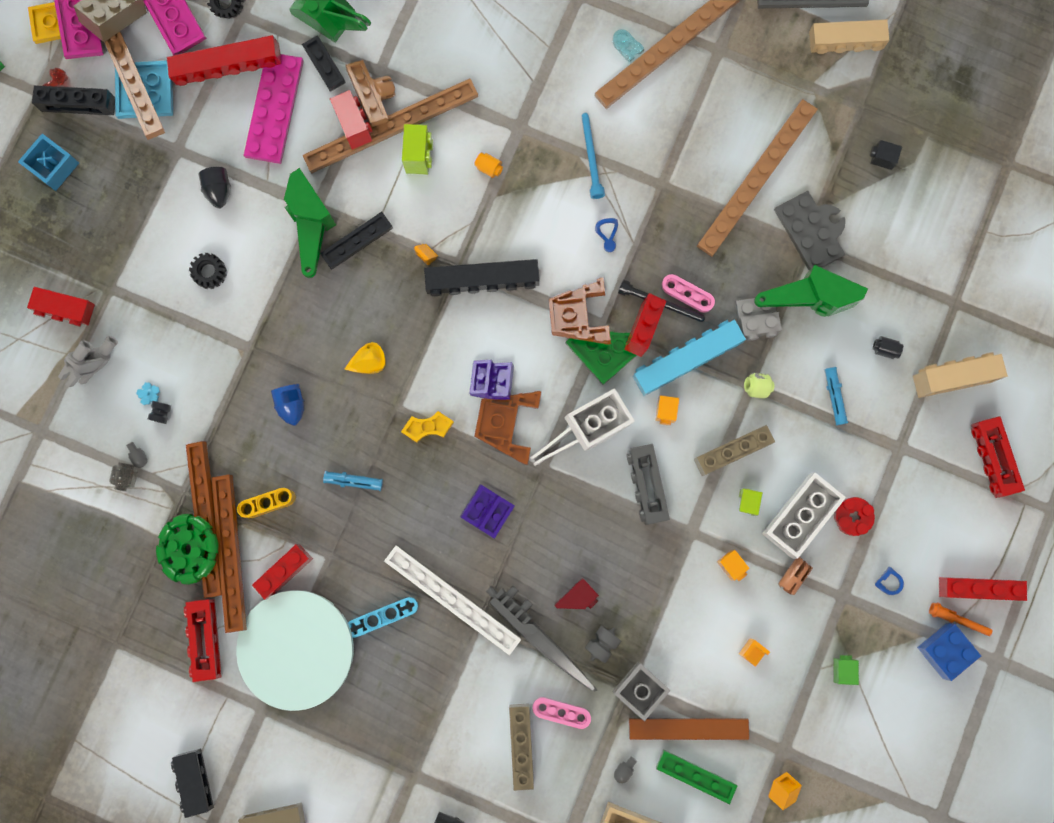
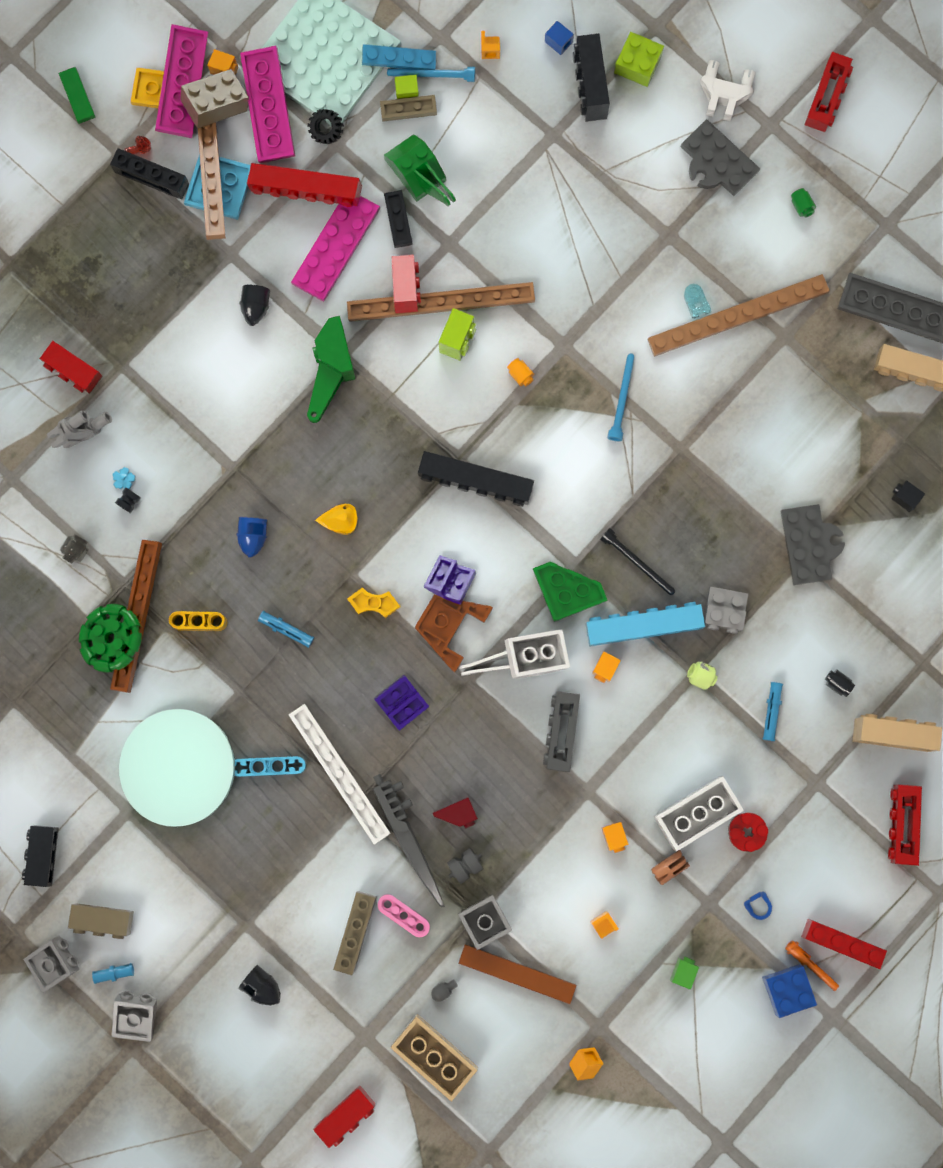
camera: 20 degrees right, 0 degrees up
(48, 162) = (106, 226): dark azure brick -> none
(136, 455) = (93, 534): dark grey cylinder -> none
(200, 262) = (215, 371): black tyre -> none
(209, 667) = (85, 734): red brick -> none
(229, 554) = (147, 656): dark orange plate -> none
(282, 571) = (190, 690): red brick -> none
(356, 240) = (369, 401): black plate -> none
(371, 92) = (433, 263): medium nougat plate -> none
(425, 253) = (430, 436): light orange slope -> none
(570, 314) = (546, 544): wing -> none
(609, 245) = (609, 489): blue piece -> none
(645, 325) = (613, 579): red brick -> none
(682, 286) = (664, 554): bright pink plate -> none
(696, 777) = (508, 1020): green plate -> none
(734, 450) = (655, 728): dark tan brick -> none
(750, 501) = (652, 782): lime panel -> none
(757, 178) = (775, 474): medium nougat plate -> none
(819, 290) = (792, 604): green slope -> none

